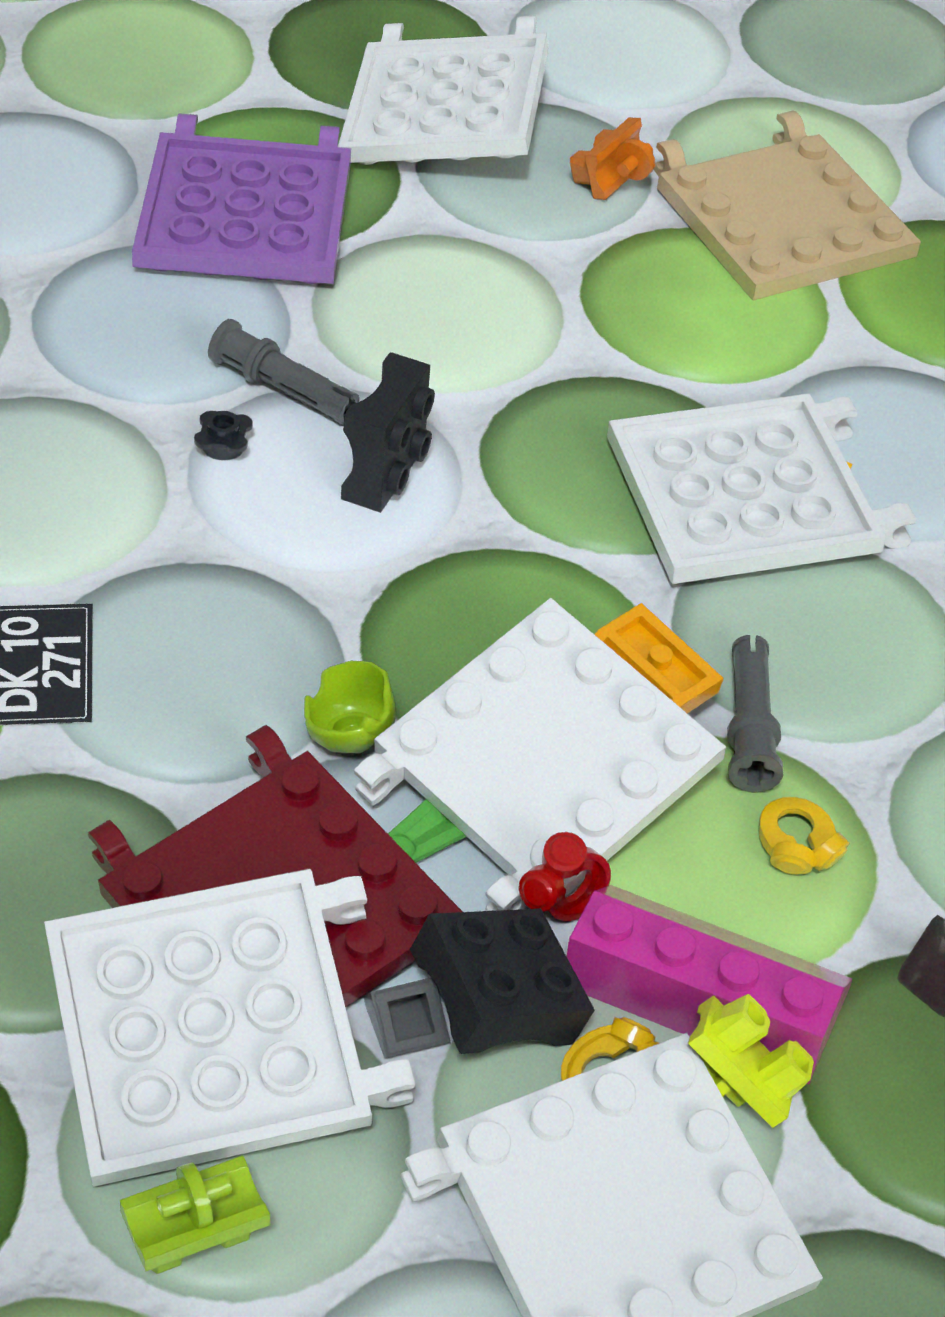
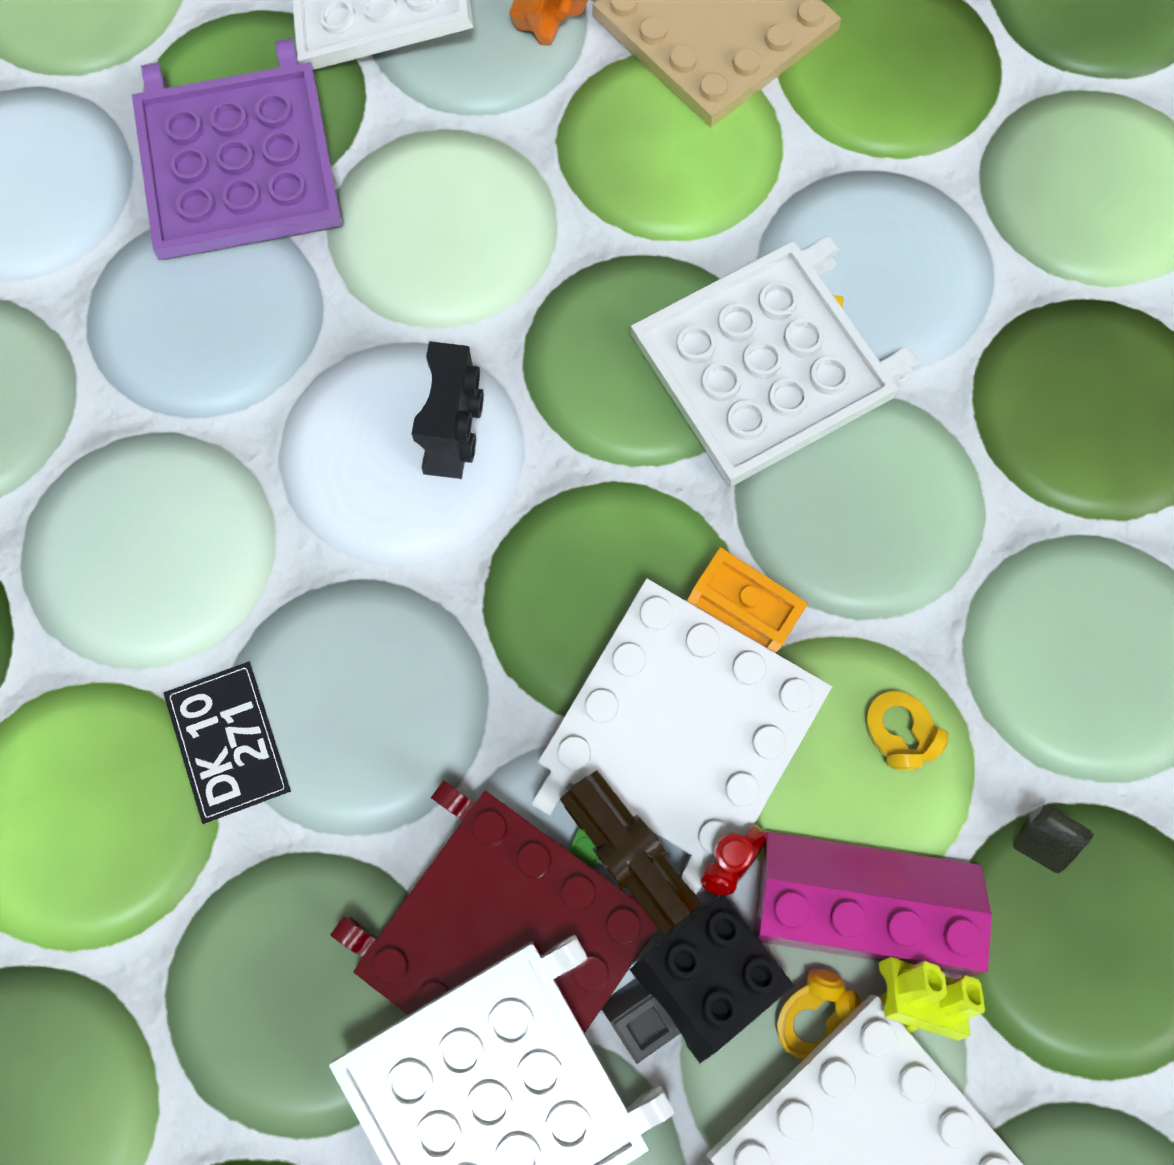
camera: 10 degrees left, 25 degrees up
(223, 434) = (306, 450): black plate -> none
(264, 362) = (311, 345): dark grey pin -> none
(350, 707) = (505, 726): lime hair -> none
(448, 828) = (629, 851): none -> dark brown piece
(753, 730) = (840, 634): dark grey pin -> none

